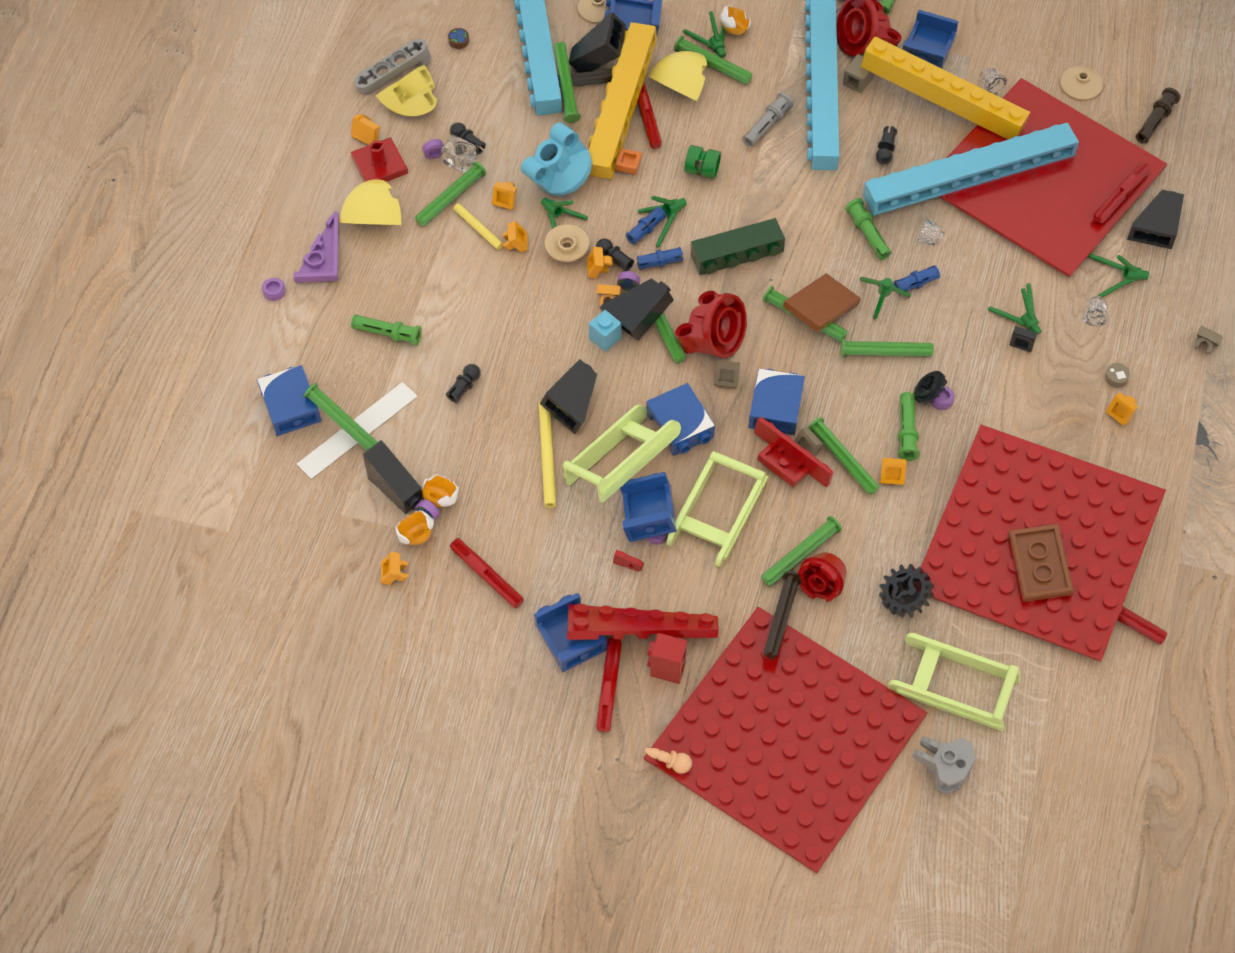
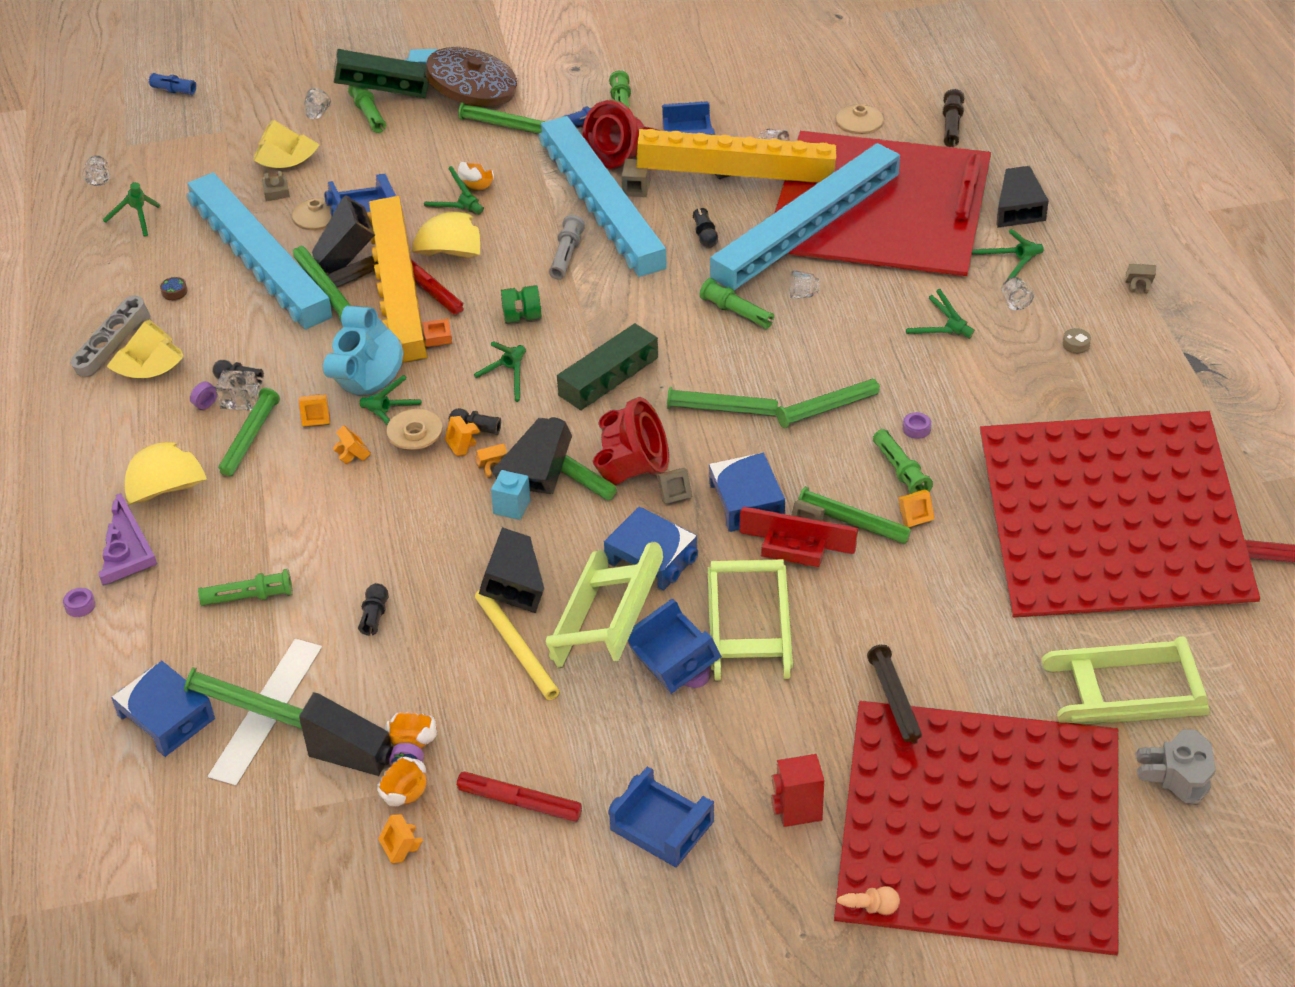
camera: 25 degrees left, 15 degrees down
(364, 129) = (111, 405): light orange tile -> none
(379, 161) = (143, 428): red tile -> none
(479, 227) = (299, 452): light yellow bar -> none
(591, 621) = (688, 788): red wing -> none
(608, 685) = (743, 856): red axle -> none
(622, 559) = (681, 714): red piece -> none
(628, 280) = (508, 436): tile -> none
(636, 233) = (493, 384): blue pin -> none
(659, 258) = (528, 408): blue pin -> none
(715, 61) = (481, 217): bright green axle -> none
(801, 551) = (871, 624): bright green axle -> none
(821, 302) = (733, 383): dark orange tile -> none
(822, 576) = (915, 636): red cone -> none
(885, 288) = (795, 341): green plant -> none
(906, 590) = (1017, 623): black gear -> none
(917, 279) = (816, 330): blue pin -> none
(930, 387) = (895, 412): black gear -> none
(1023, 339) = (963, 341): black tile -> none
(1040, 563) = (1135, 528): dark orange tile -> none
(1122, 408) = (1105, 365): light orange tile -> none

